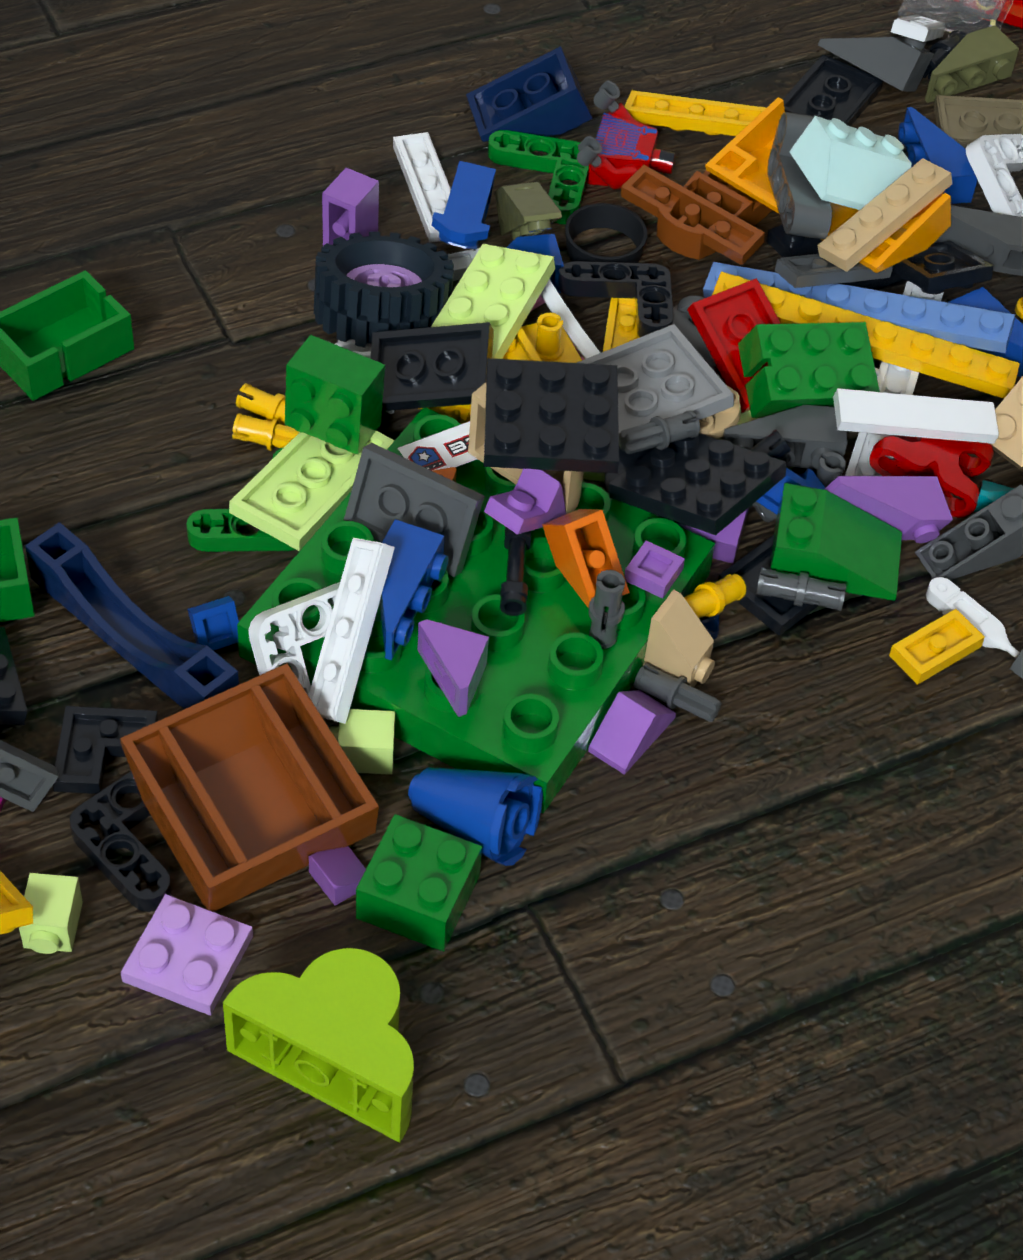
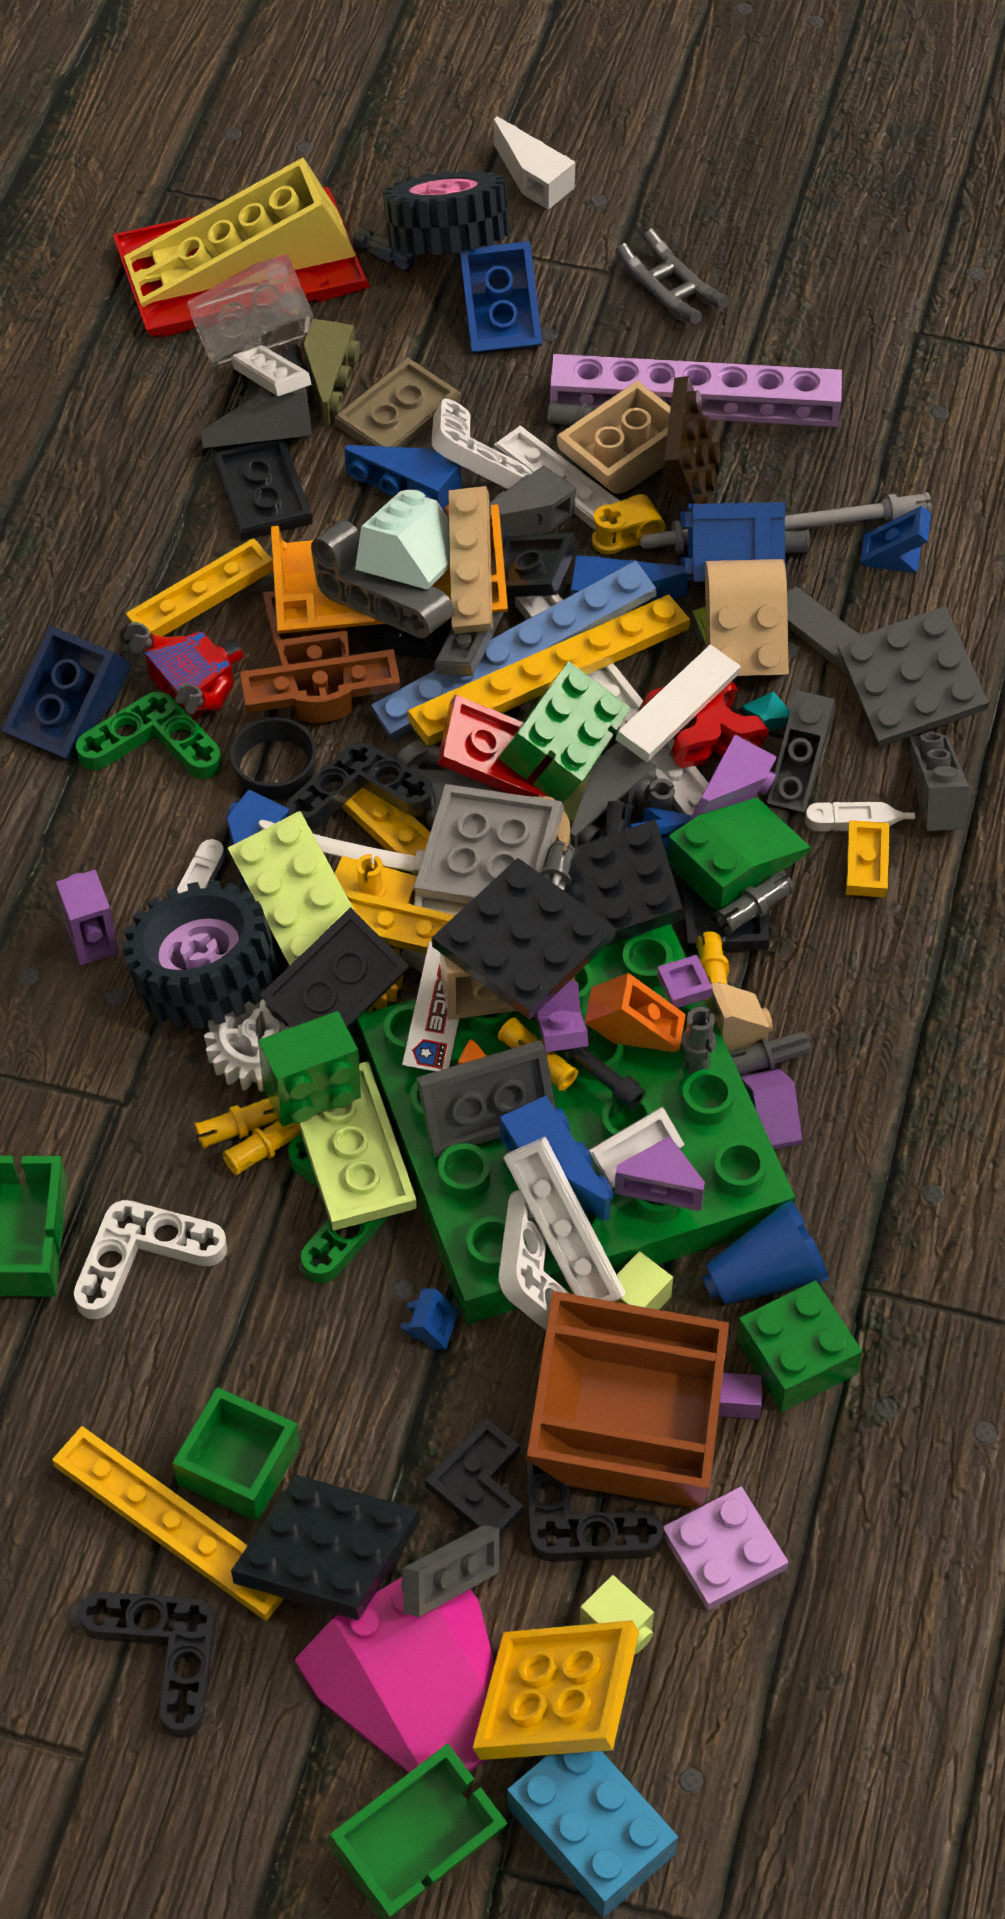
camera: 45 degrees left, 5 degrees up
(80, 584) = (463, 1372): dark blue arch -> none
(115, 411) = (130, 1239): none -> white beam
(330, 1035) = (902, 1491): lime brick -> none
(424, 177) = (84, 836): white tile -> none
(466, 207) = (164, 829): blue piece -> none
(488, 530) = (516, 1035): none -> yellow pin
(502, 634) = (632, 1141): none -> white tile
(525, 210) = (206, 789): olive slope -> none

